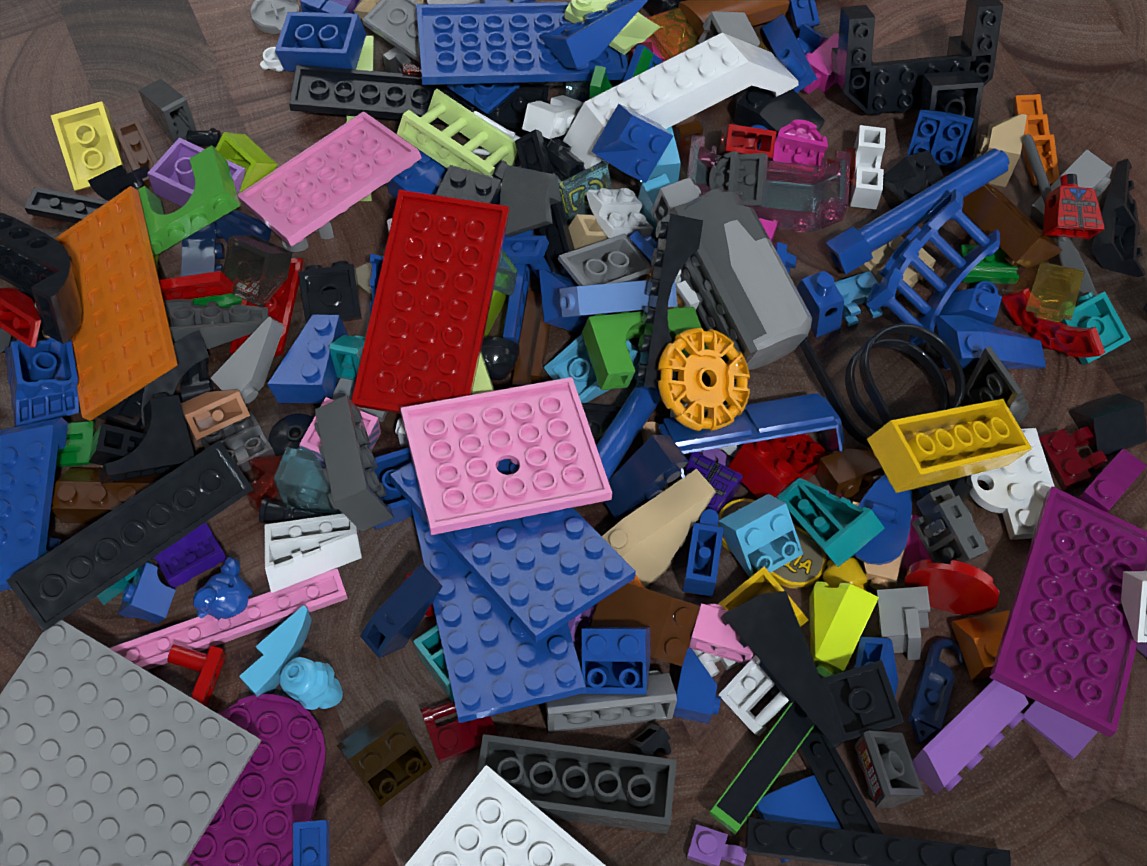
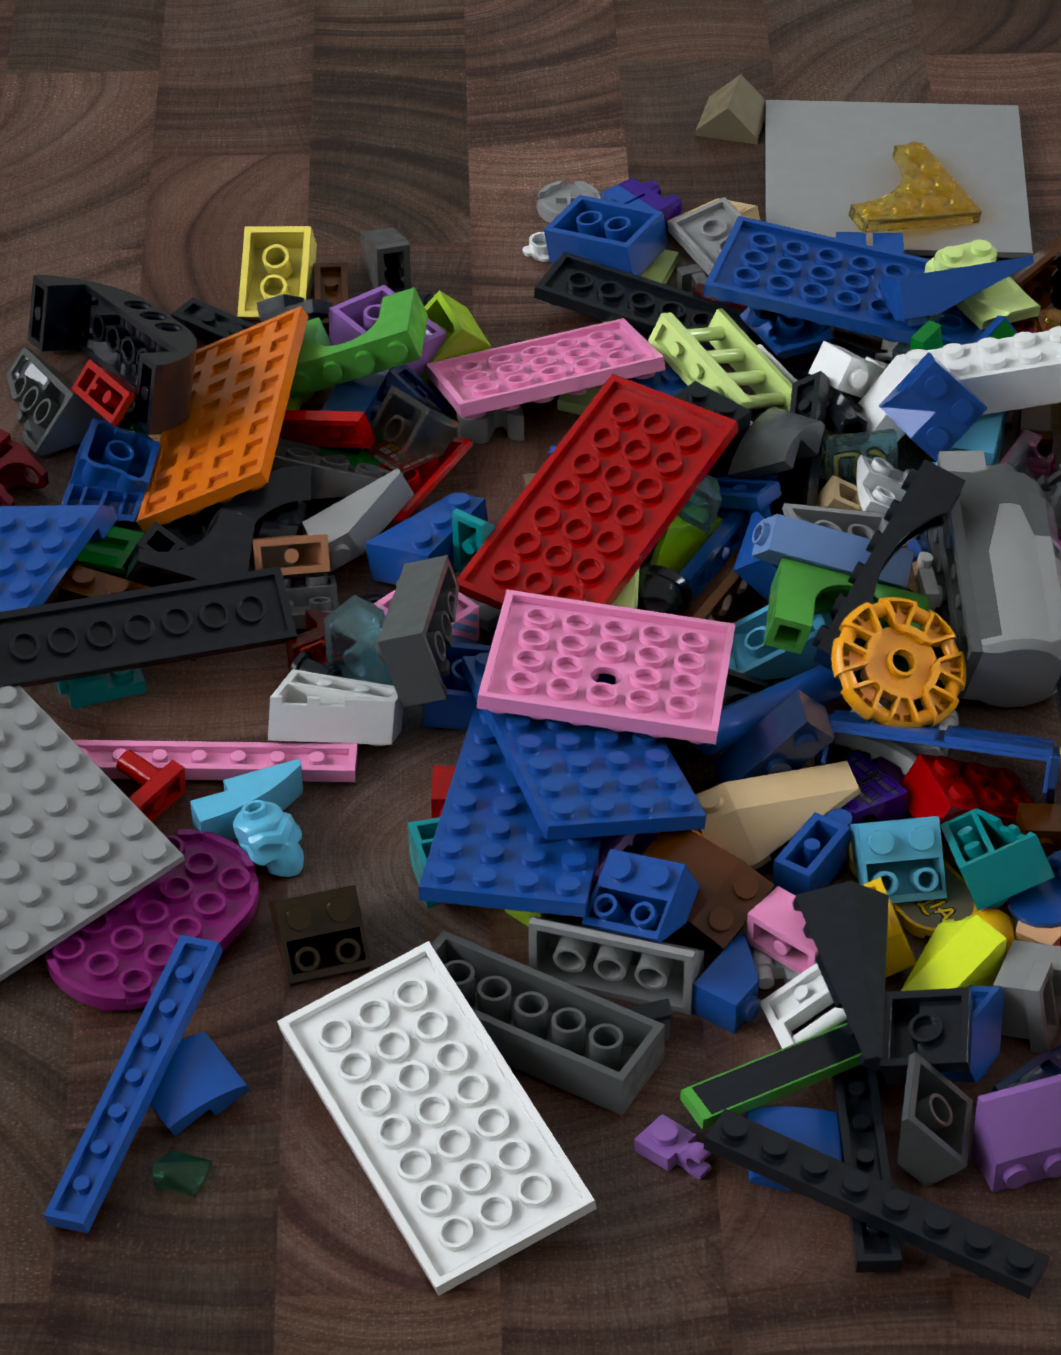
camera: 25 degrees right, 20 degrees down
(146, 596) = (123, 704): blue brick -> none
(190, 556) = (192, 682): dark purple bracket -> none
(224, 593) = (211, 722): blue hair -> none
(331, 291) = (491, 476): black plate -> none
(401, 613) = (406, 794): dark blue slope -> none
(455, 738) = (402, 940): dark red plate -> none

